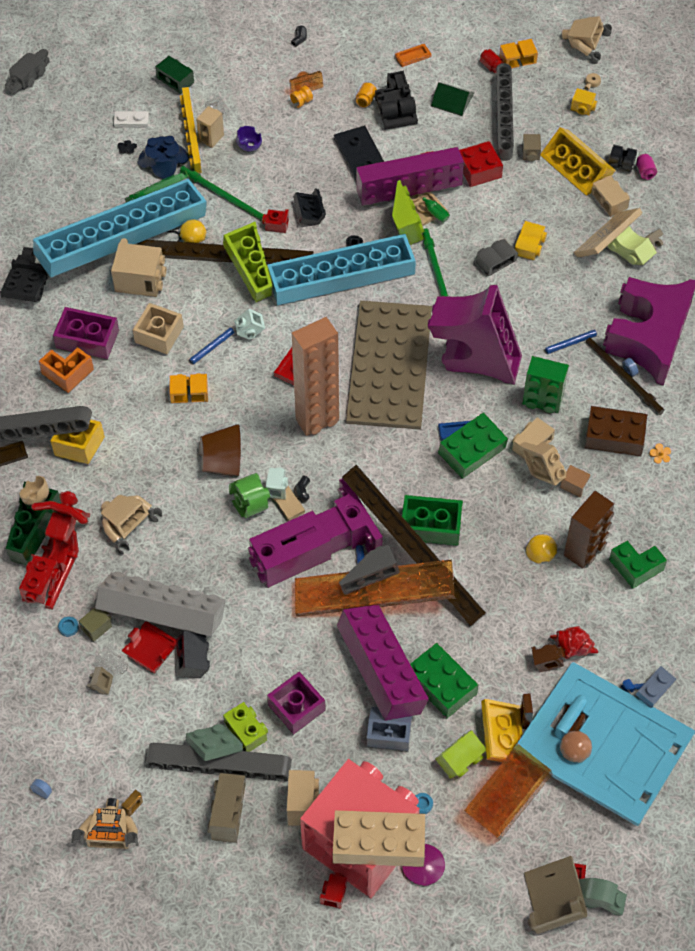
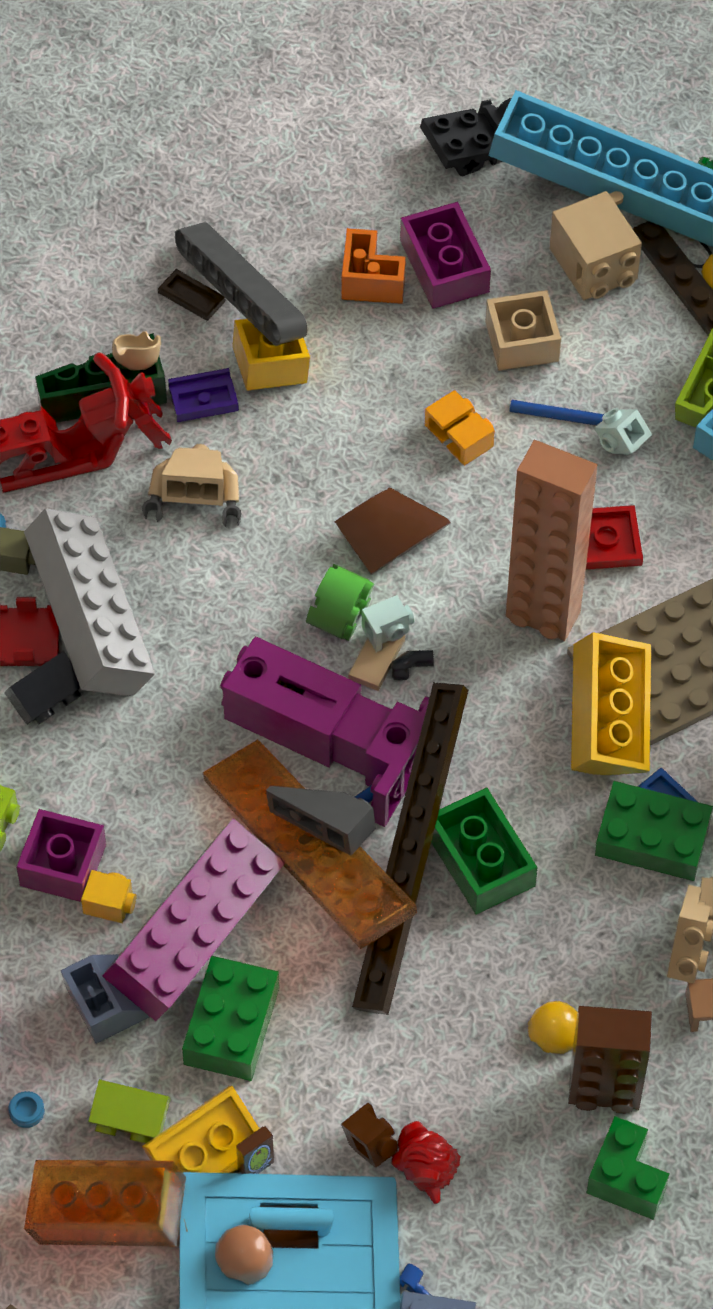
camera: 55 degrees right, 0 degrees up
(76, 481) = (203, 395): none -> dark purple plate
(334, 695) = (108, 896): none -> yellow brick
(396, 420) = (611, 706): none -> yellow slope

